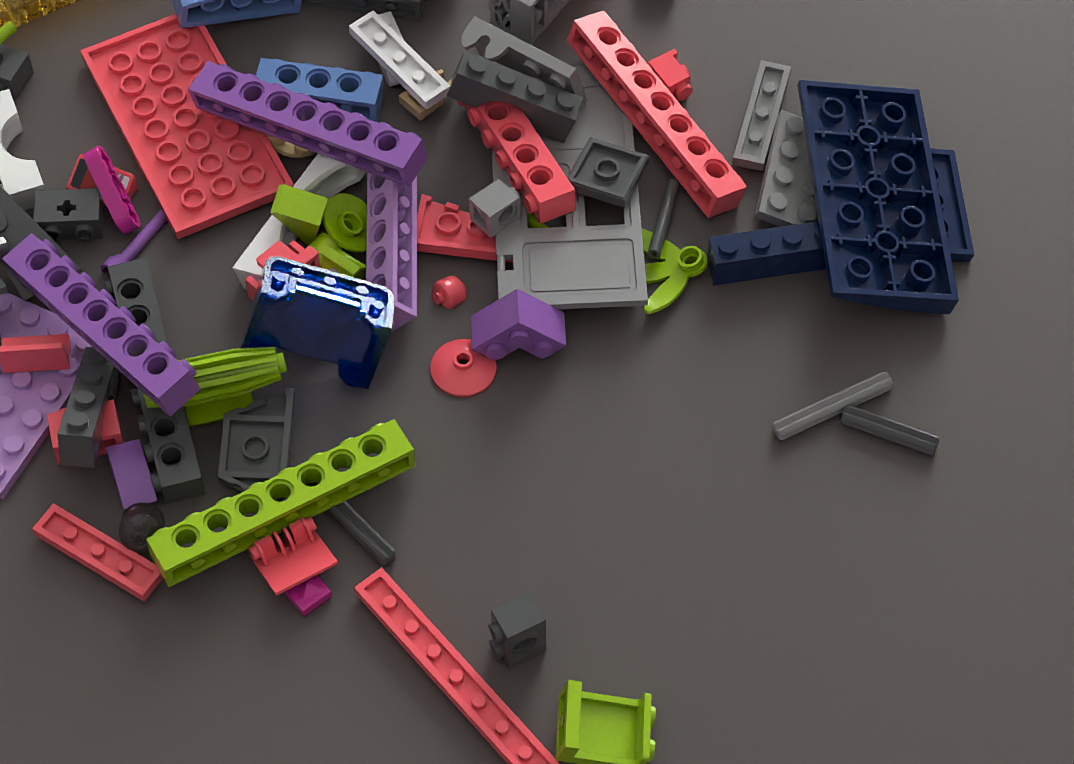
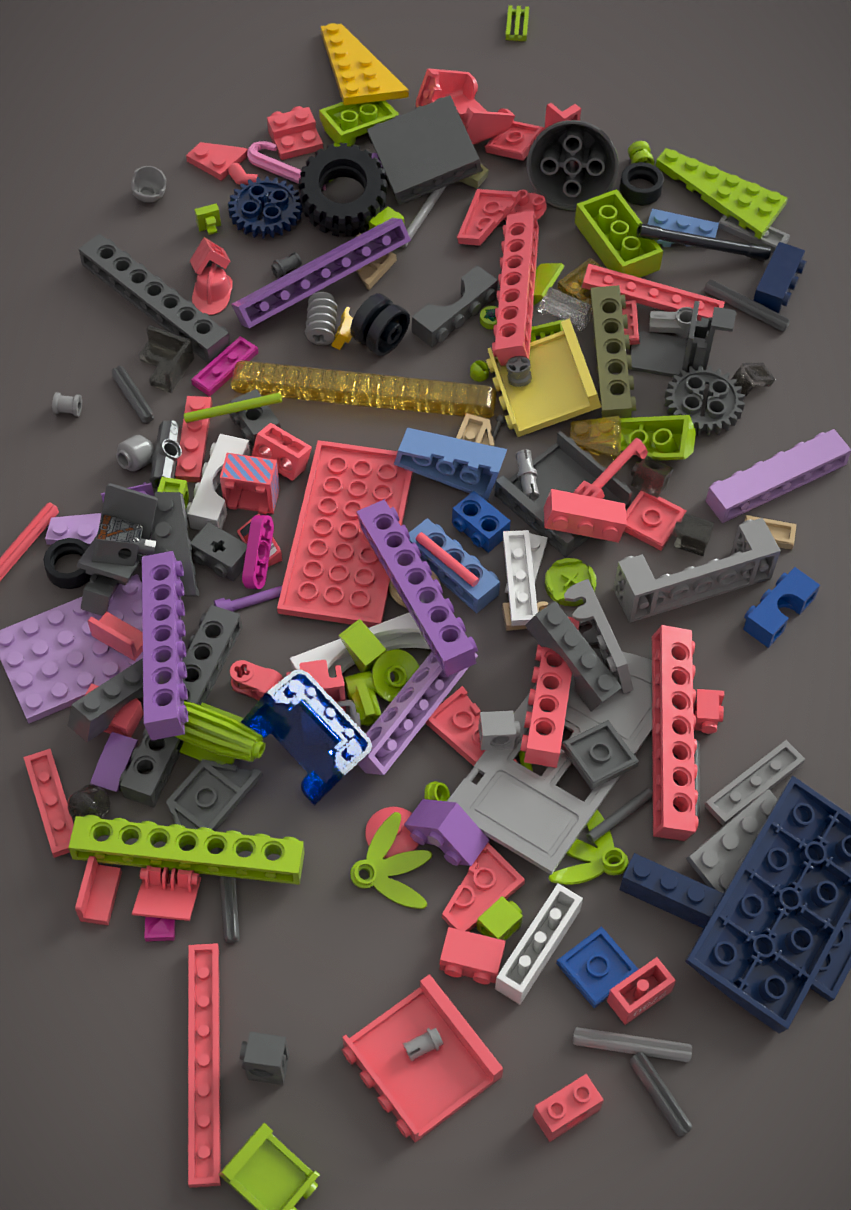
camera: 35 degrees right, 0 degrees up
(48, 128) = (250, 483): none -> coral container
(52, 74) = (288, 450): none -> coral brick
(213, 311) = (253, 681): none -> coral piece
(221, 602) = (97, 892): none -> coral panel
(313, 33) = (484, 518): none -> blue brick
(315, 83) = (447, 559): none -> coral bar
(440, 40) = (565, 574): none -> lime tile
(449, 292) = (427, 770): coral piece -> none
(476, 302) = (436, 791): none -> lime plate
(480, 406) = (394, 865): none -> lime plant
(592, 363) = (482, 886): none -> coral wing
(630, 423) = (472, 956): none -> coral brick
(631, 378) = (500, 920): none -> lime brick
(653, 518) = (423, 1044): none -> light grey pin
(657, 539) = (434, 1084): none -> coral panel
(684, 371) = (538, 943): none -> white brick
(750, 360) = (596, 966): none -> blue plate
(807, 352) = (641, 990): none -> coral brick
(822, 492) = (568, 1107): none -> coral brick

